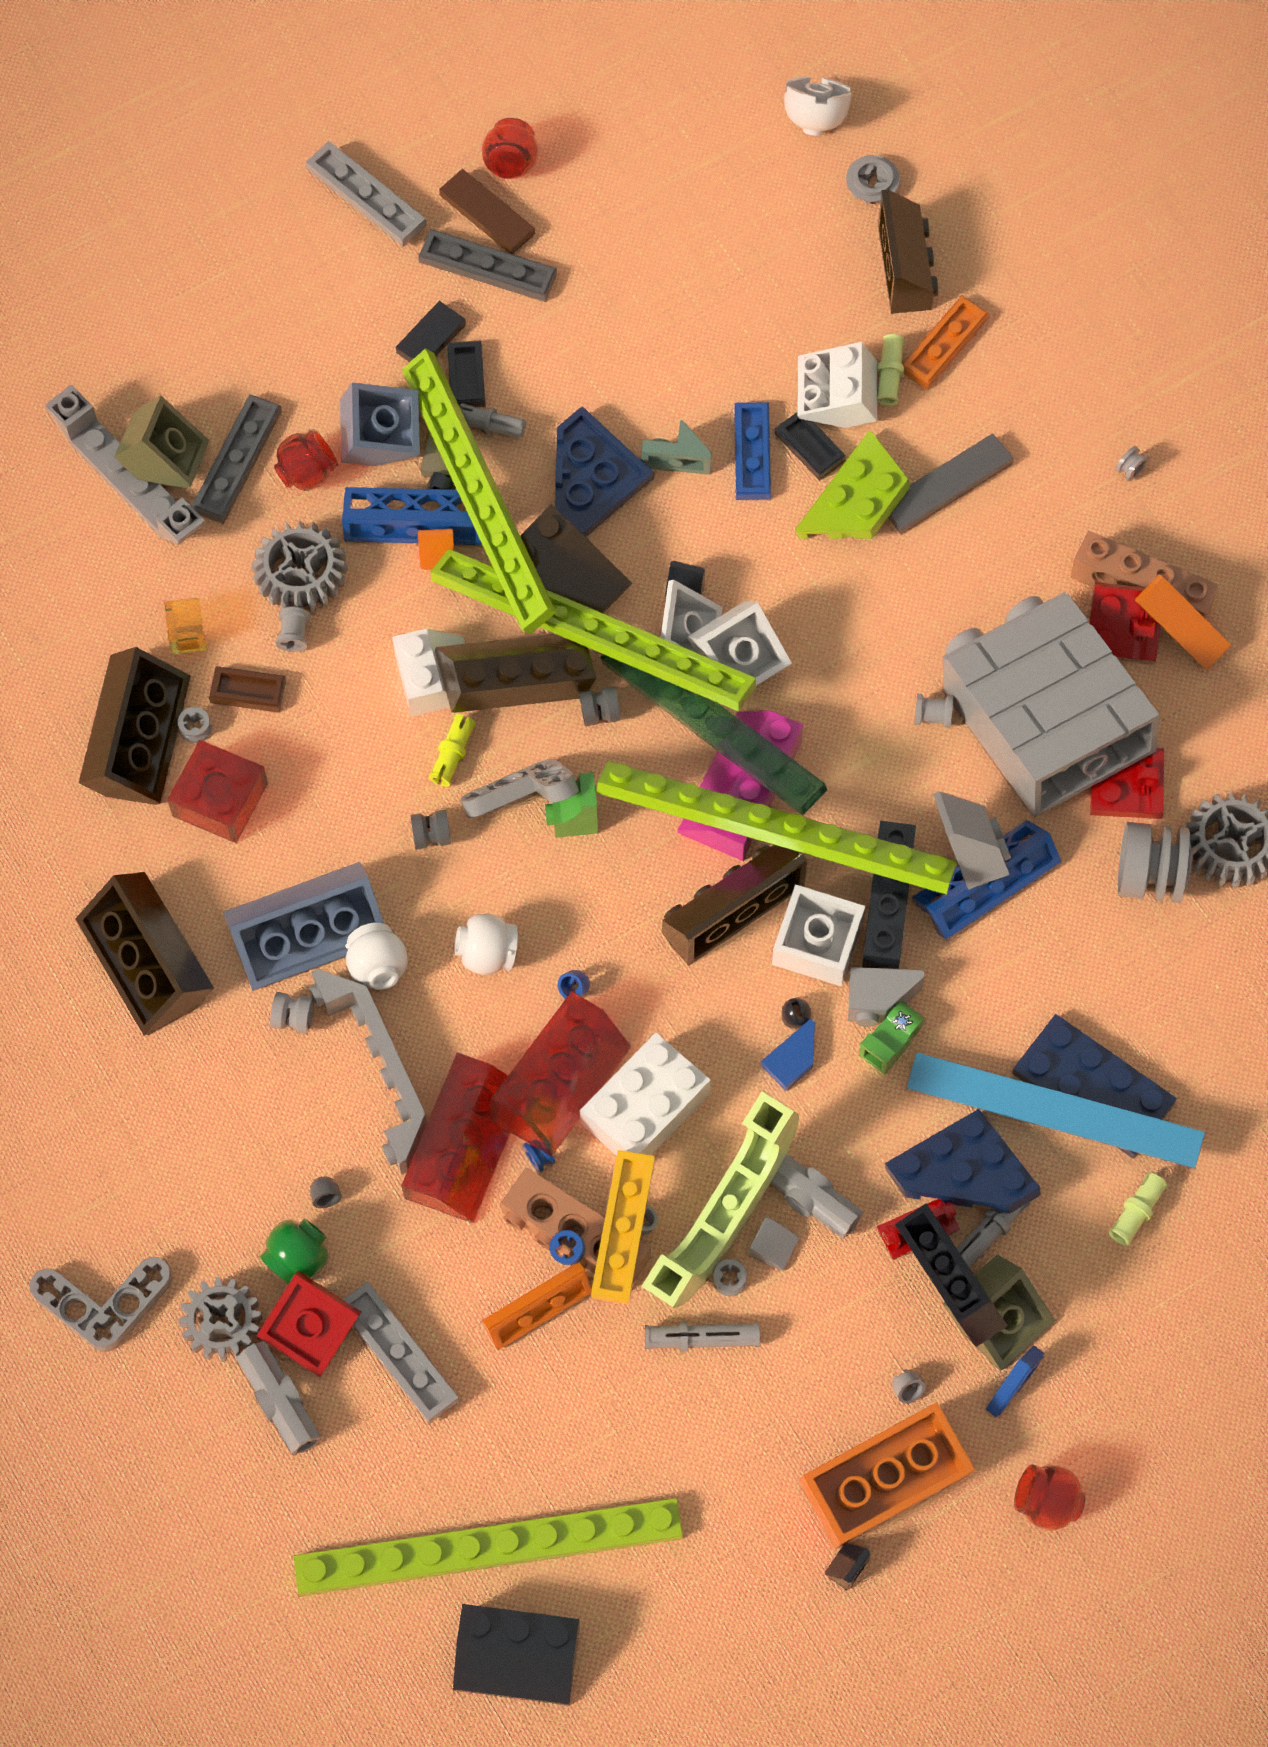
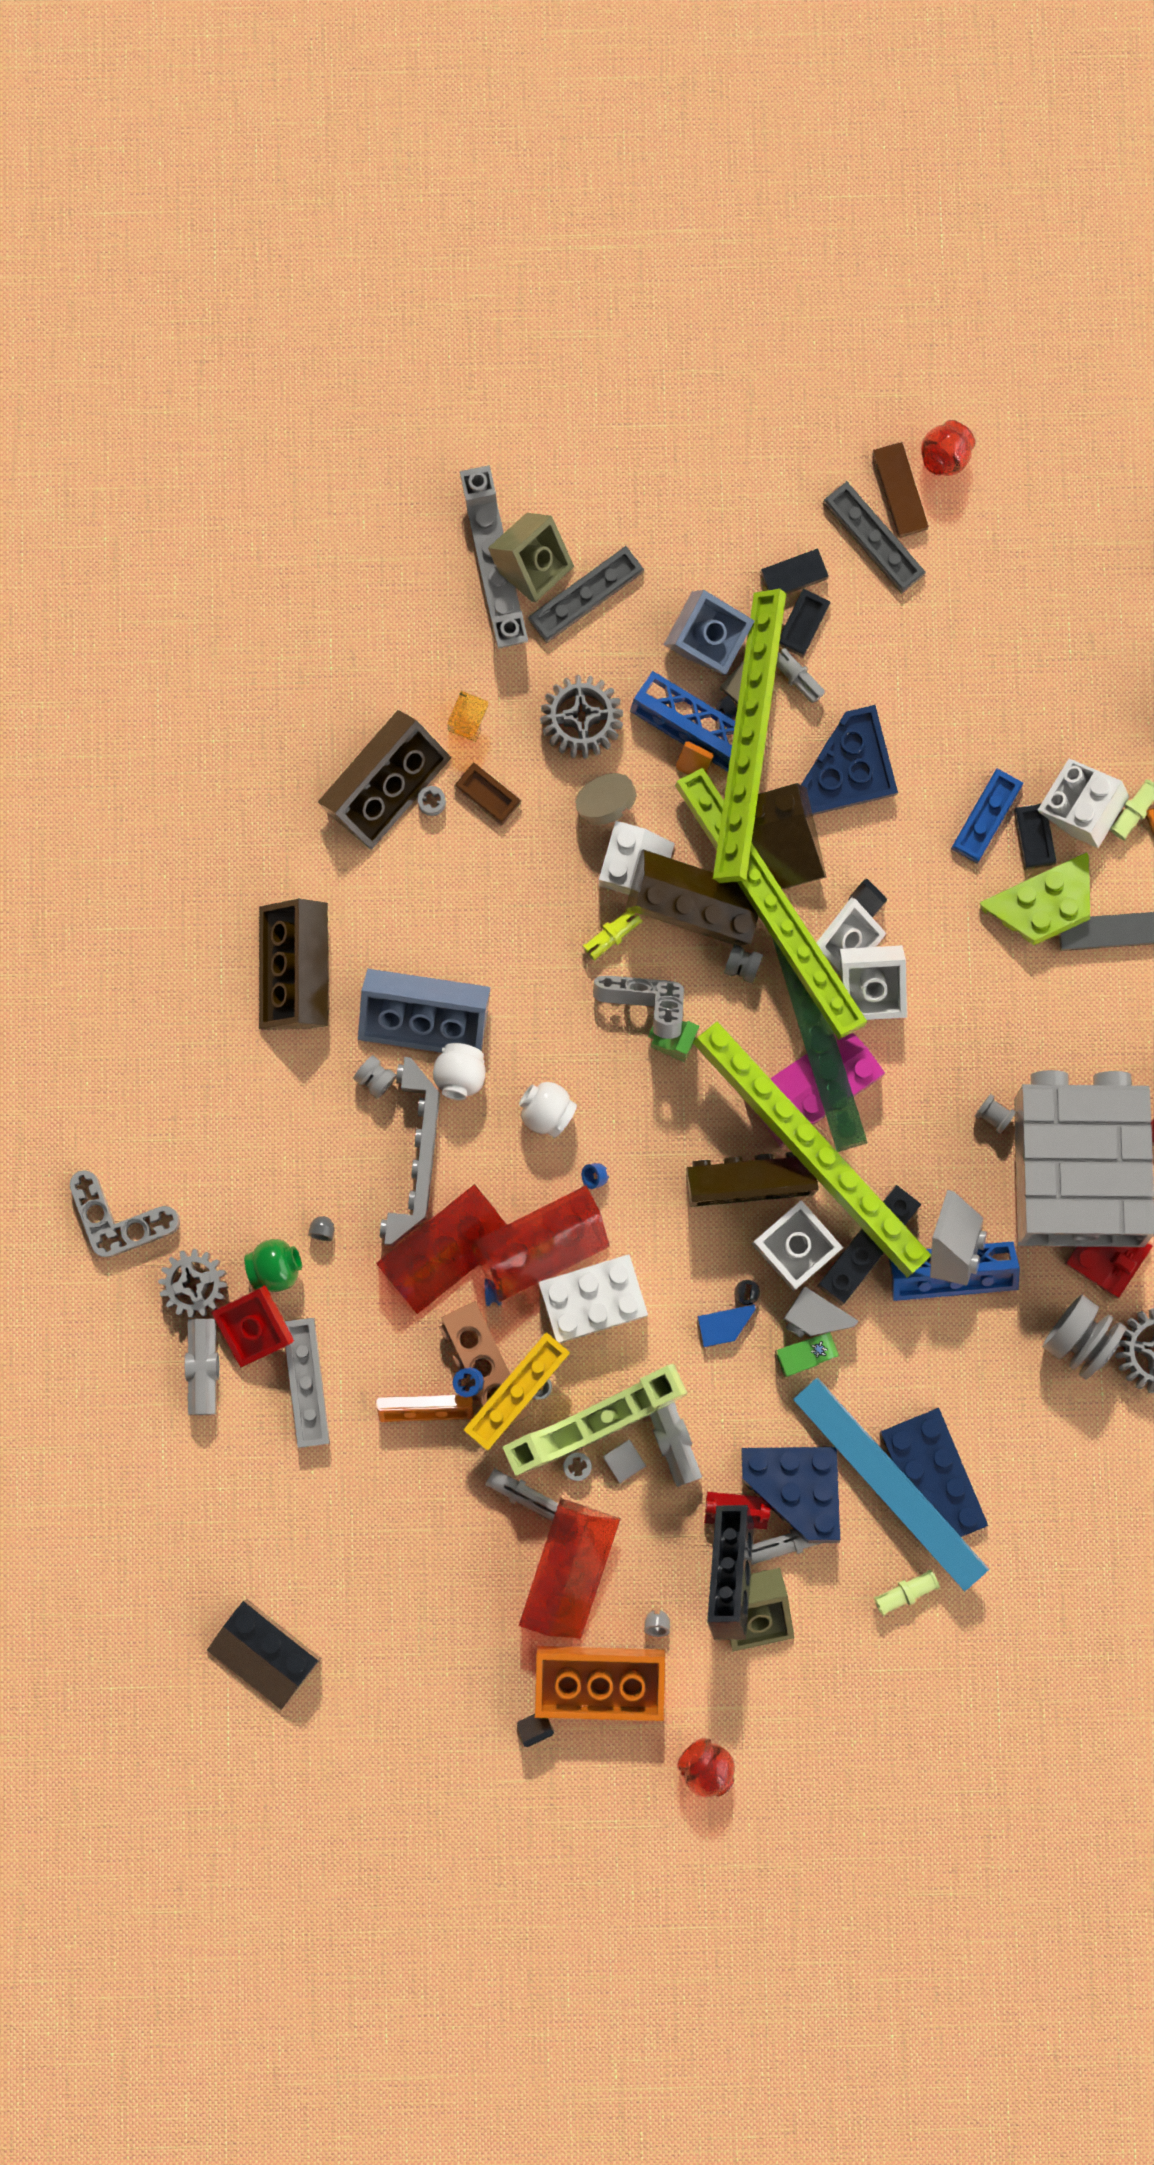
camera: 30 degrees right, 15 degrees up
(217, 791) = (417, 868): clear red brick -> none
(292, 629) = (548, 765): light grey bush -> none
(305, 461) = (635, 630): clear red piece -> none
(366, 193) = (813, 421): light grey plate -> none
(369, 626) = (605, 798): none -> dark tan tile
(439, 829) = (565, 992): dark grey wheel -> none
(487, 1547) = (289, 1563): lime plate -> none
(686, 455) = (932, 792): sand green slope -> none
(784, 1379) = (569, 1570): none -> clear red slope
(1015, 1381) = (737, 1667): blue tile -> none

